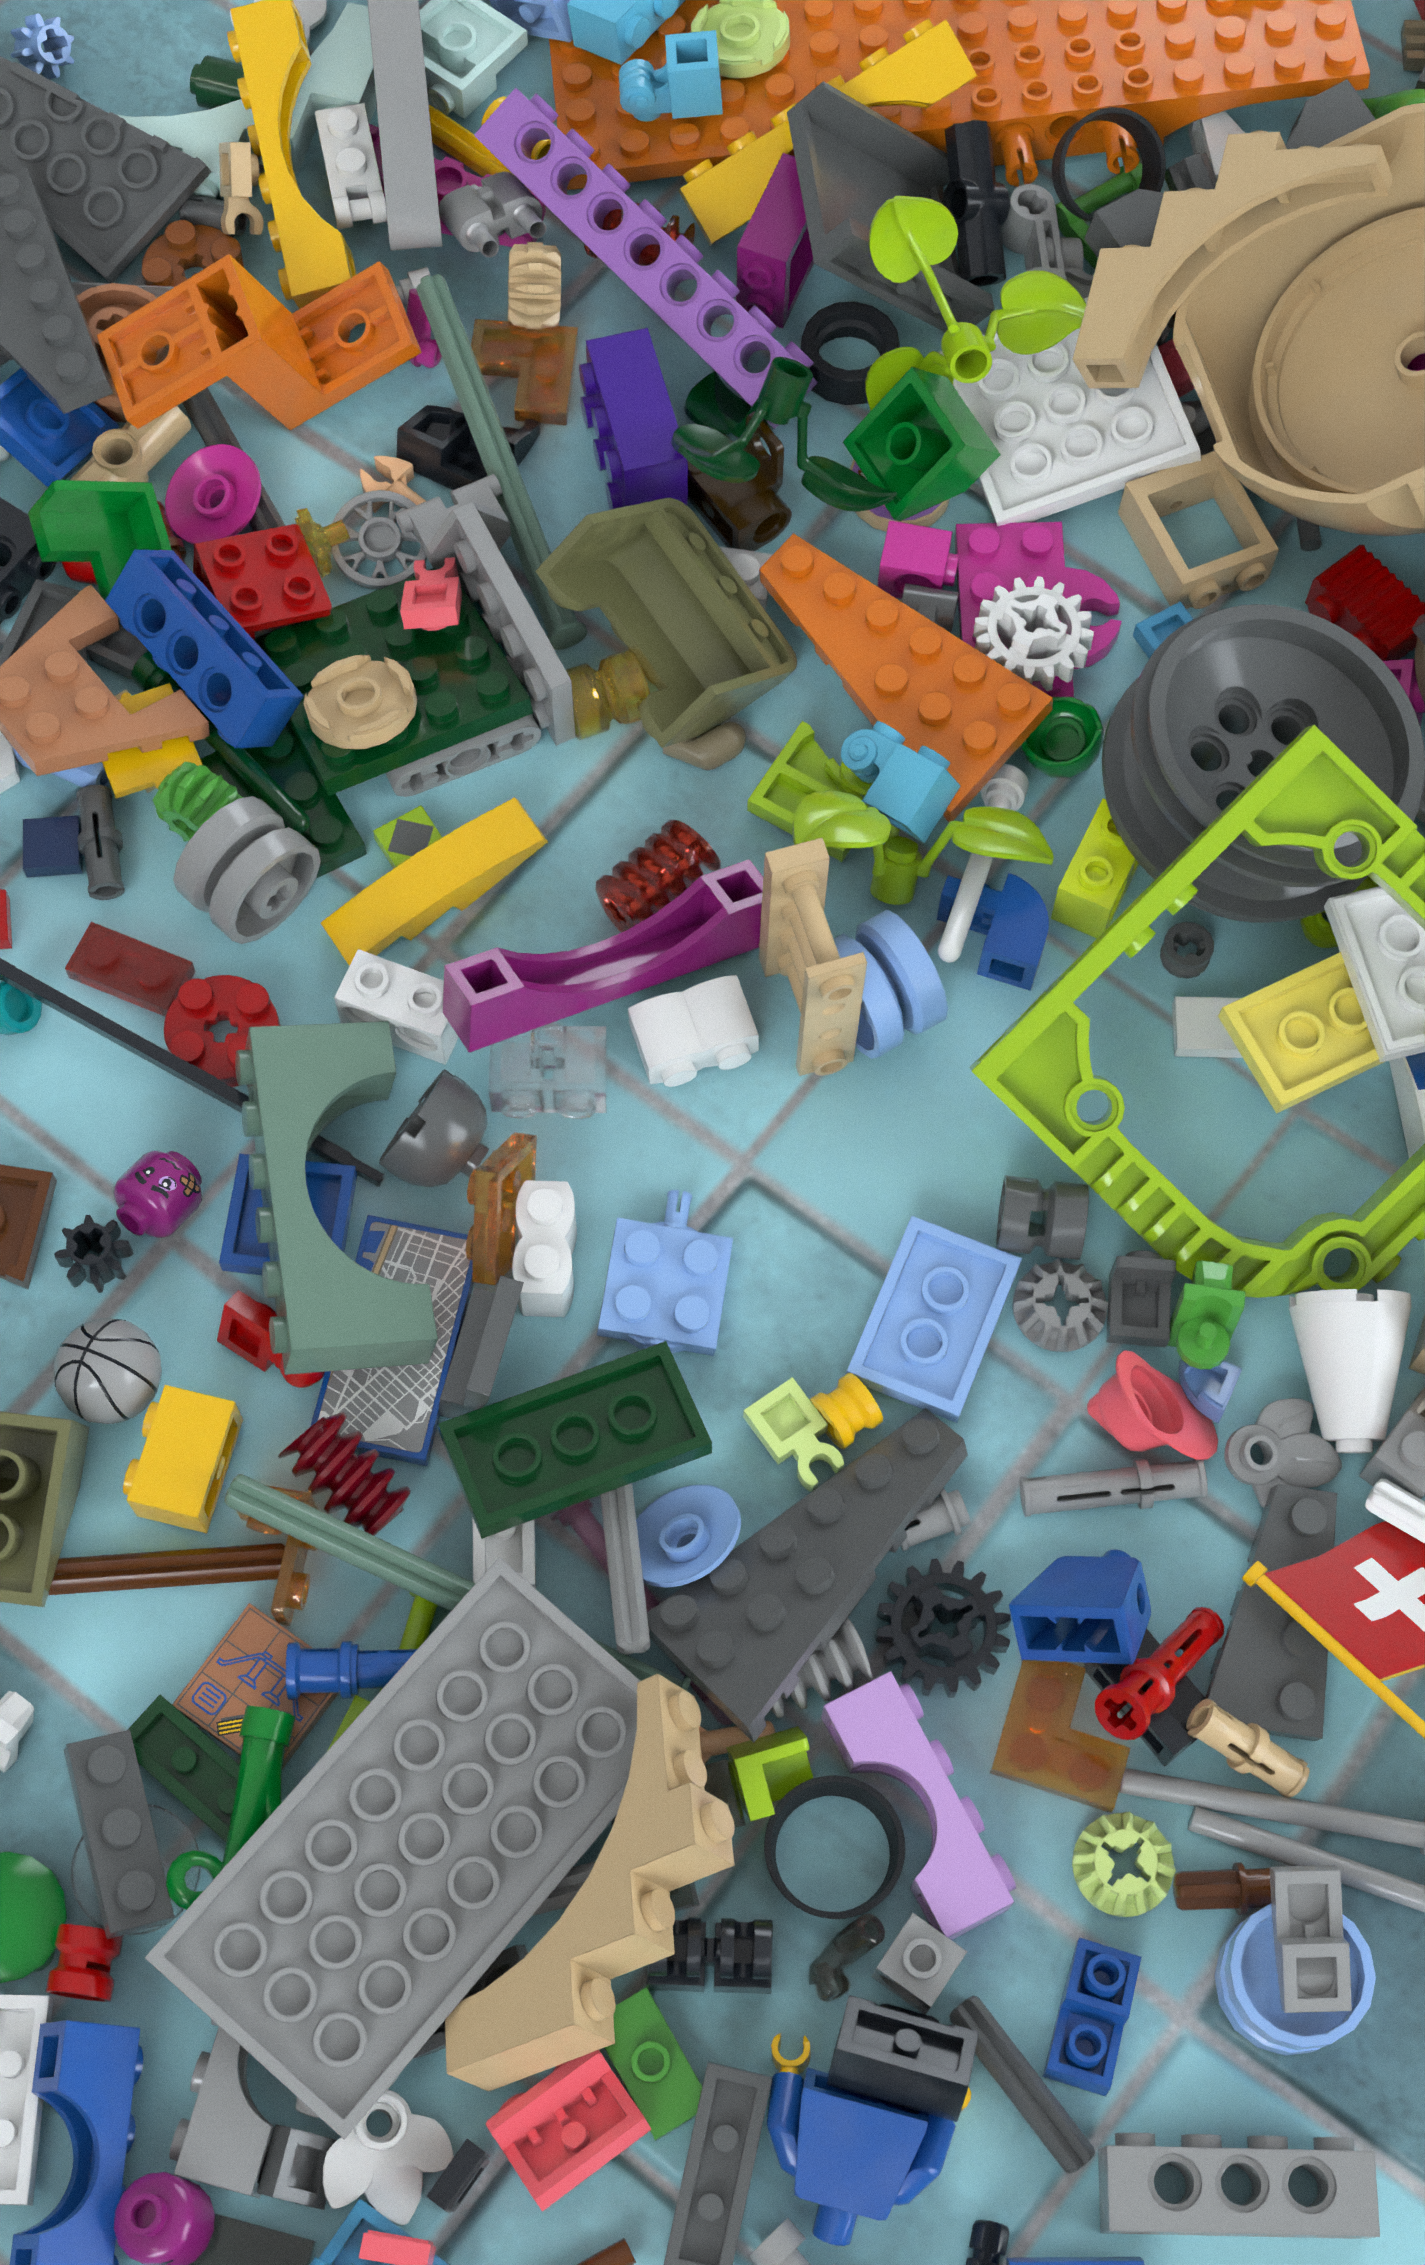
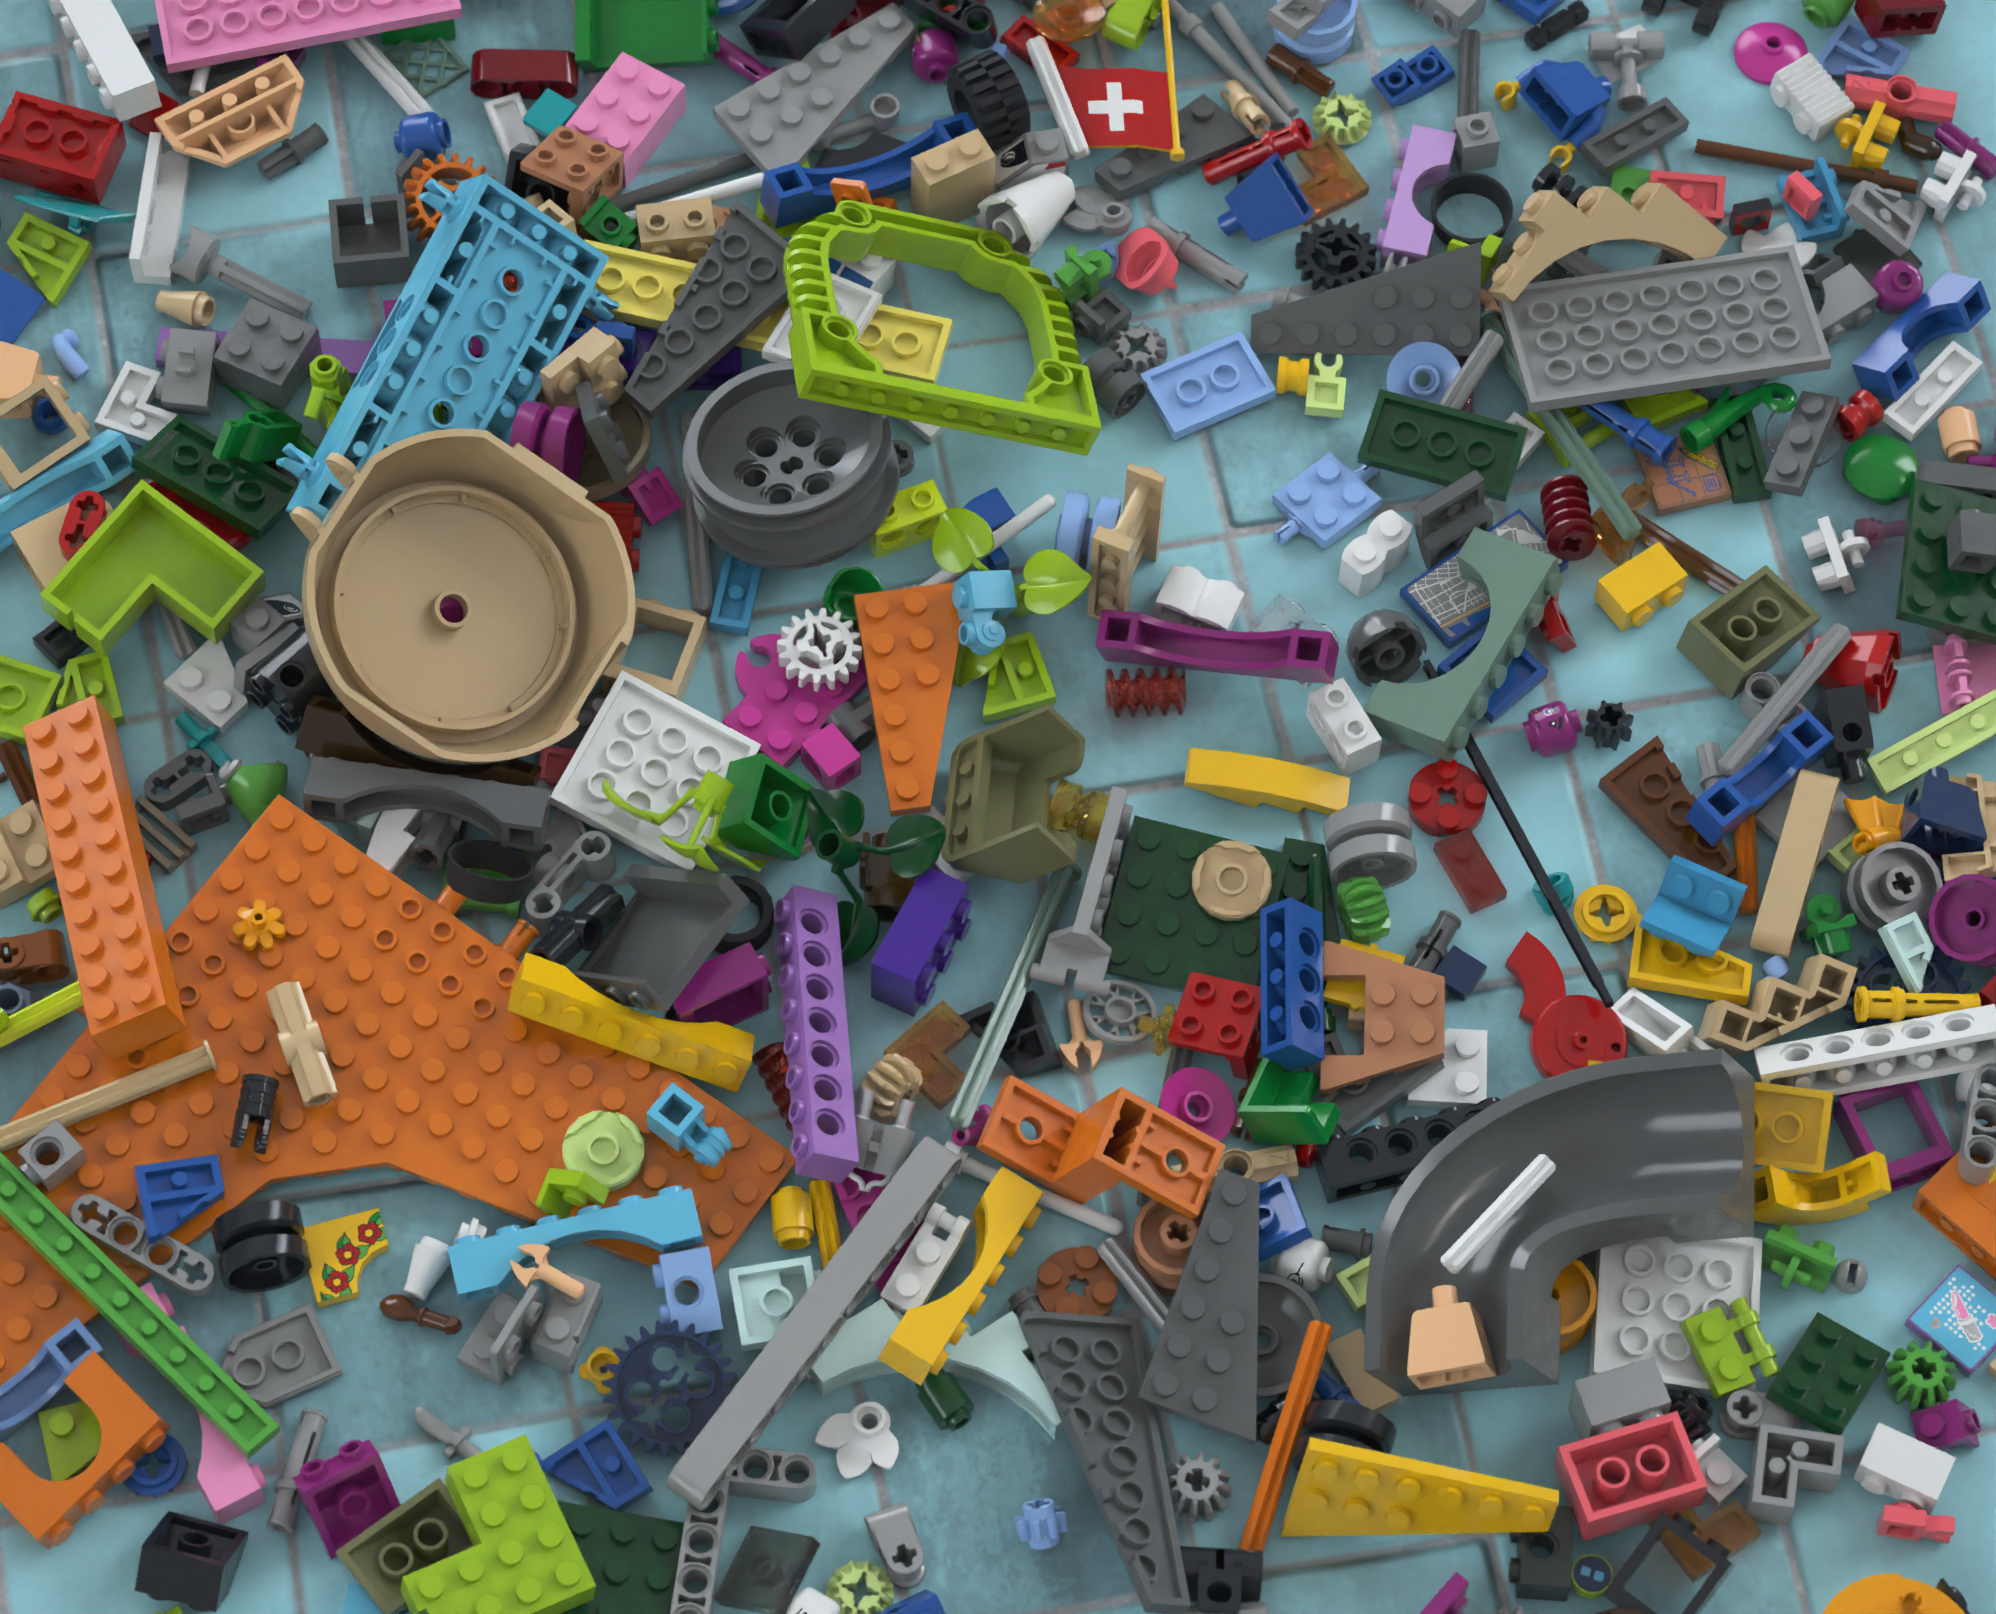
camera: 140 degrees left, 5 degrees down
(107, 1371) = (1648, 654): light grey piece -> none
(237, 175) = (1010, 1289): tan plate -> none
(406, 835) = (1257, 823): tile -> none
(432, 598) = (1137, 915): coral plate -> none
(494, 1194) = (1384, 577): clear orange plate -> none
(842, 1951) = (1513, 176): clear smoke arm -> none
(903, 2058) = (1524, 101): black piece -> none
(1198, 229) = (507, 752): tan arch -> none

